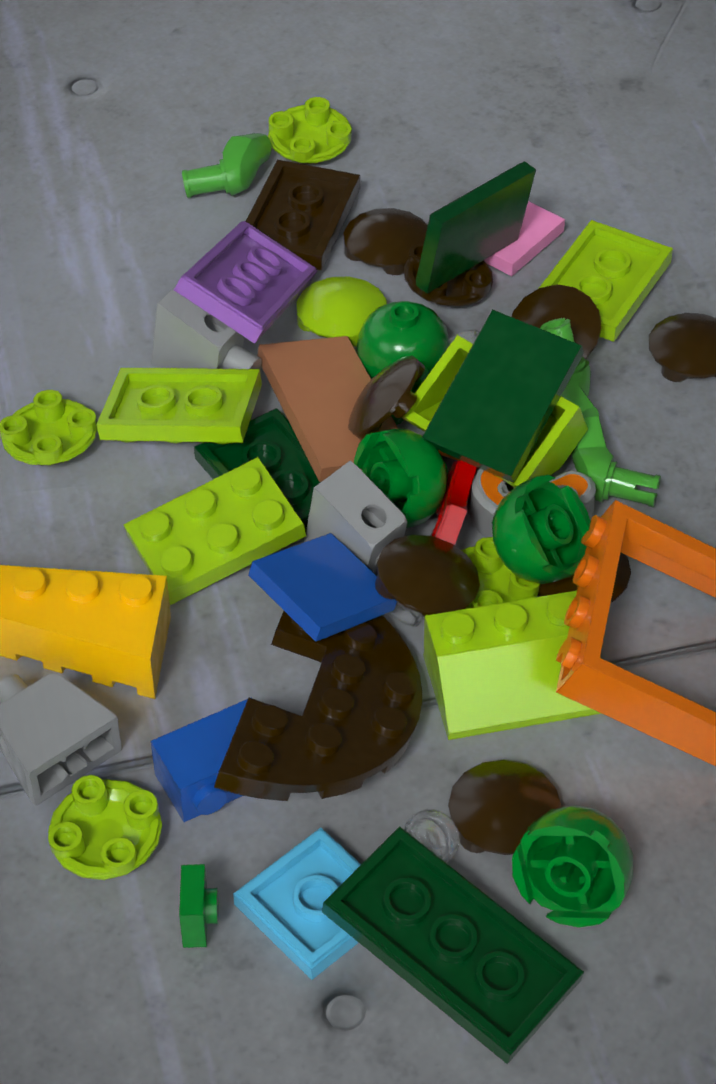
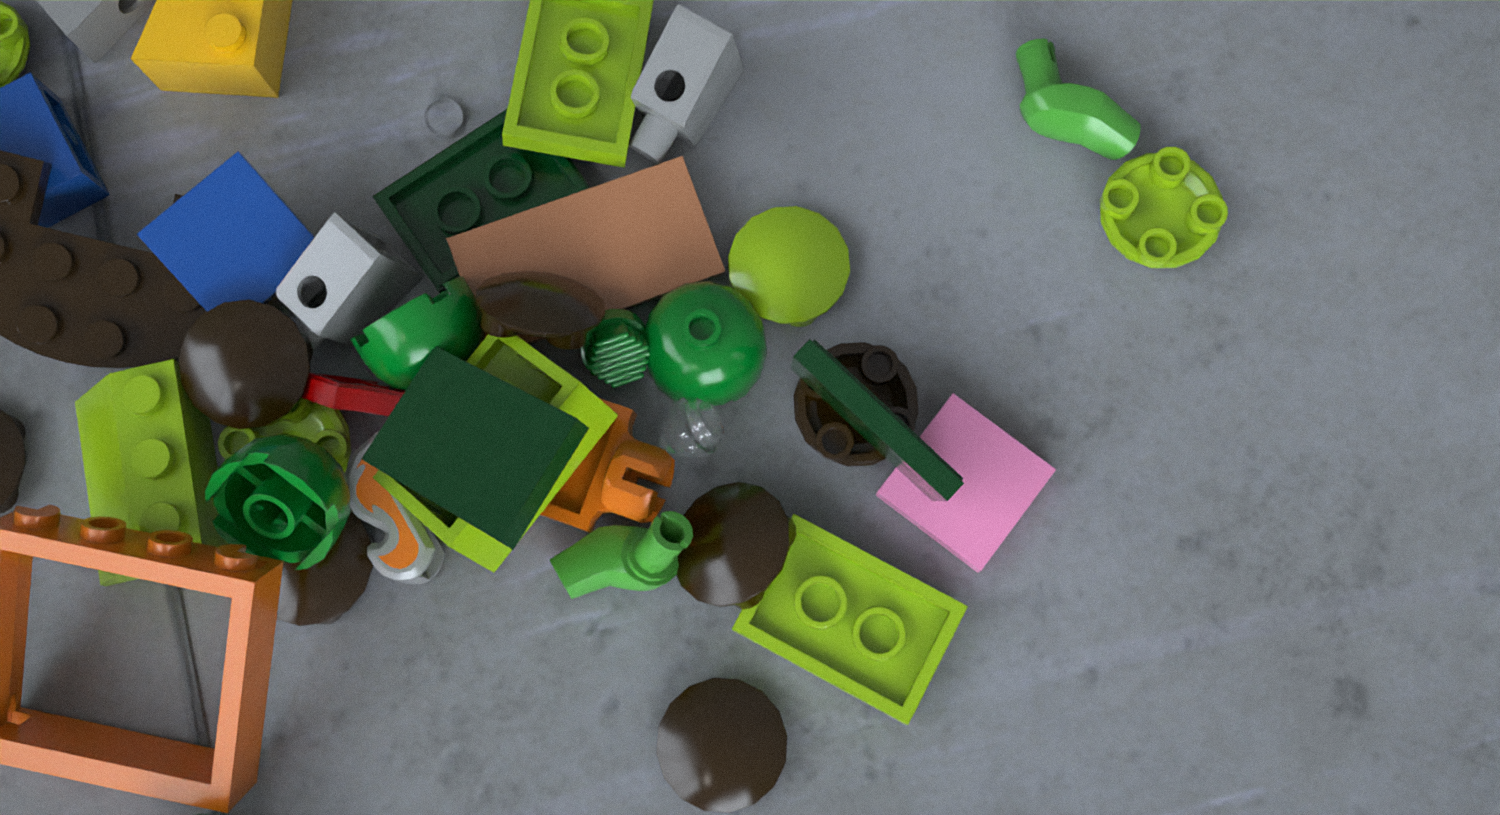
camera: 90 degrees right, 30 degrees up
(215, 529) = (378, 129): lime plate -> none
(246, 281) = (769, 123): medium lavender tile -> none
(305, 208) = (974, 201): dark brown plate -> none
(383, 238) = (937, 321): dark brown dish -> none
(598, 463) = (467, 589): bright green arm -> none

